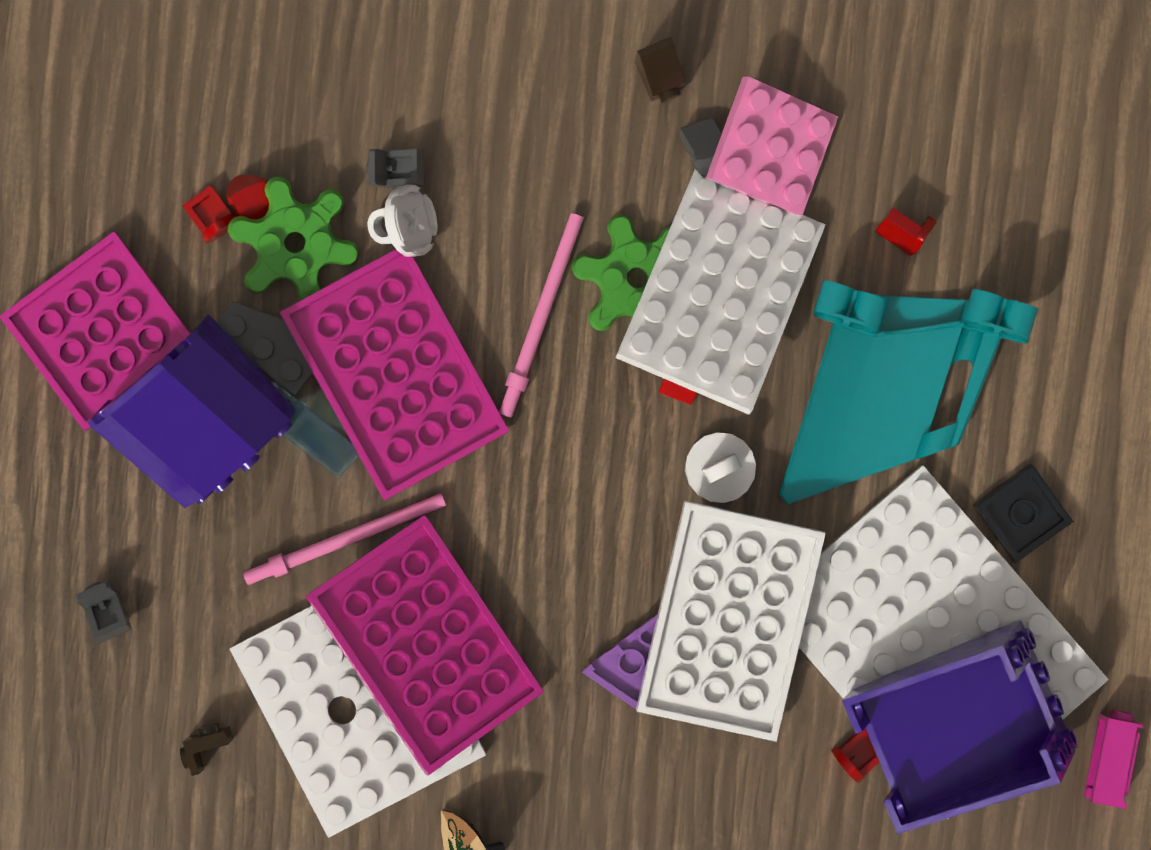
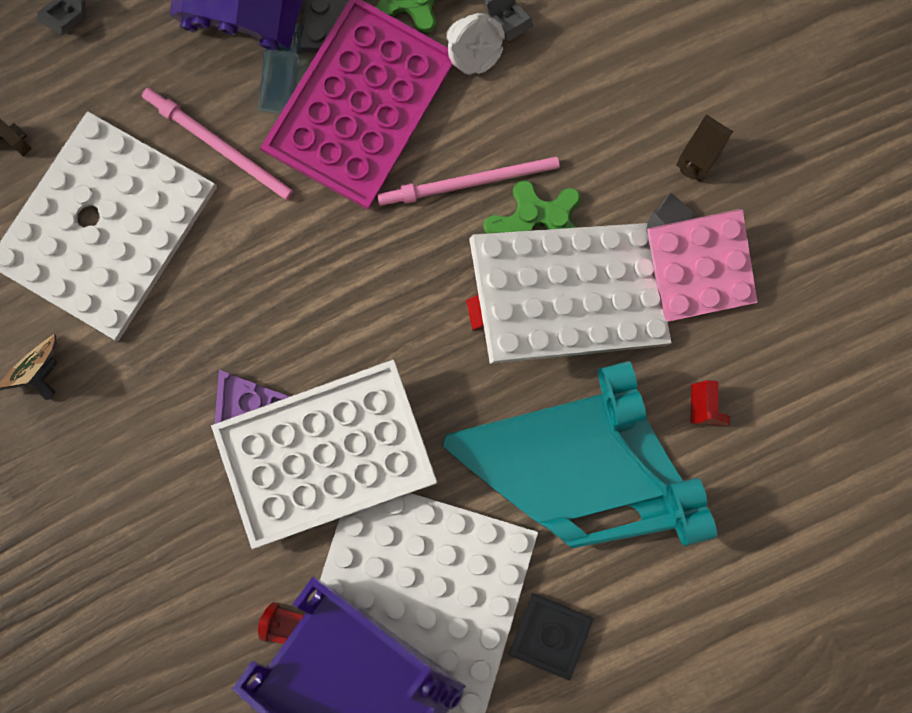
camera: 65 degrees right, 10 degrees down
(424, 644) = (169, 240): dark pink plate -> none
(720, 467) = (438, 379): white tile -> none

